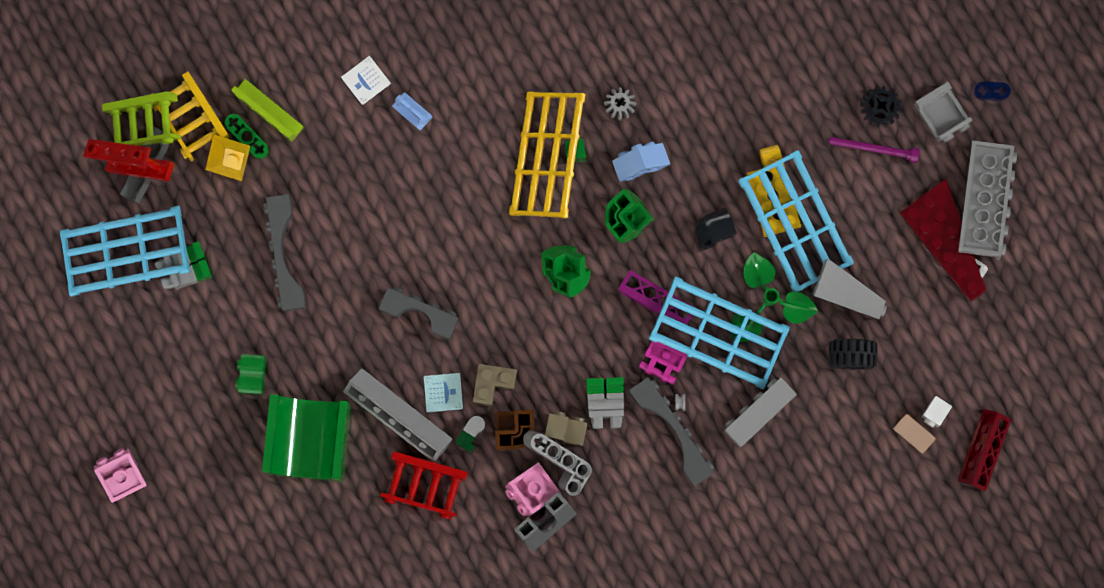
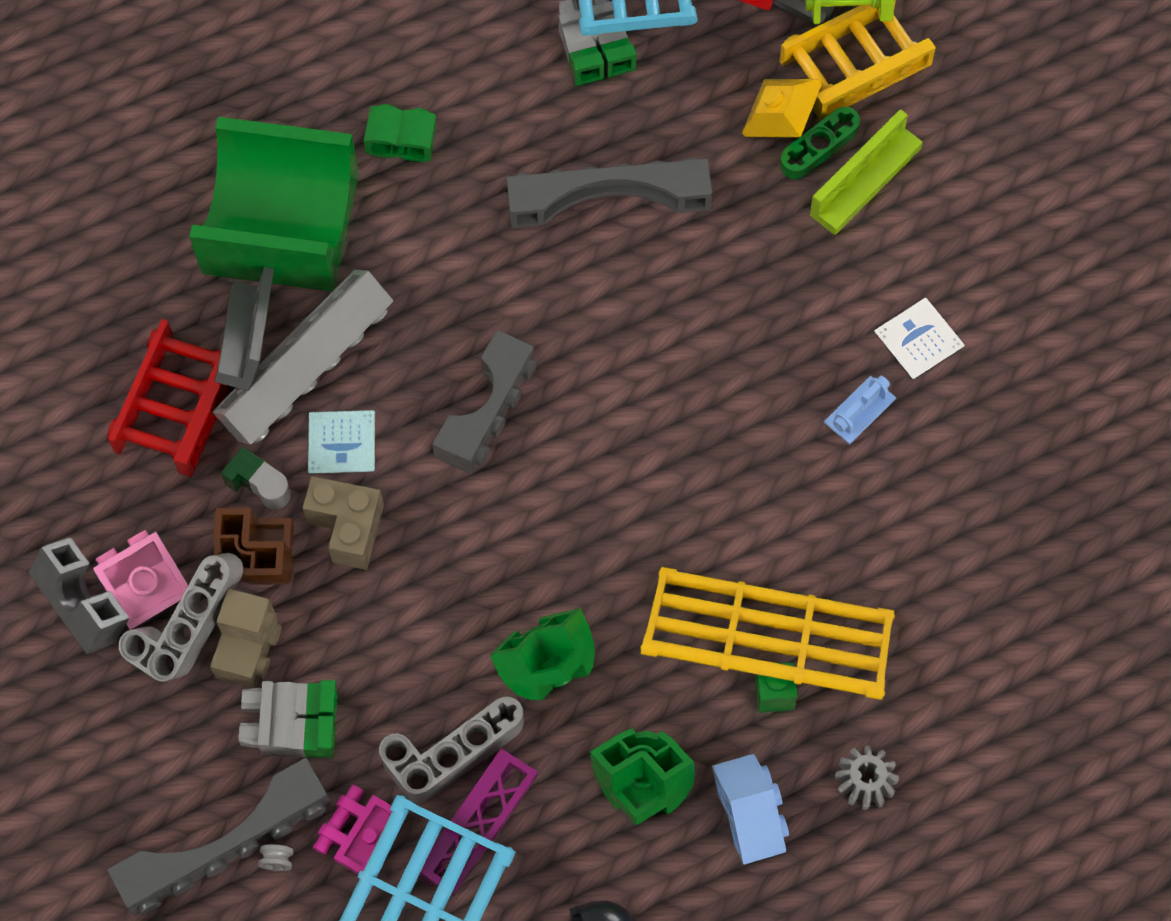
camera: 90 degrees right, 15 degrees down
(387, 446) = (244, 332): none -> dark grey fence
(614, 314) = (455, 744): none -> light grey beam

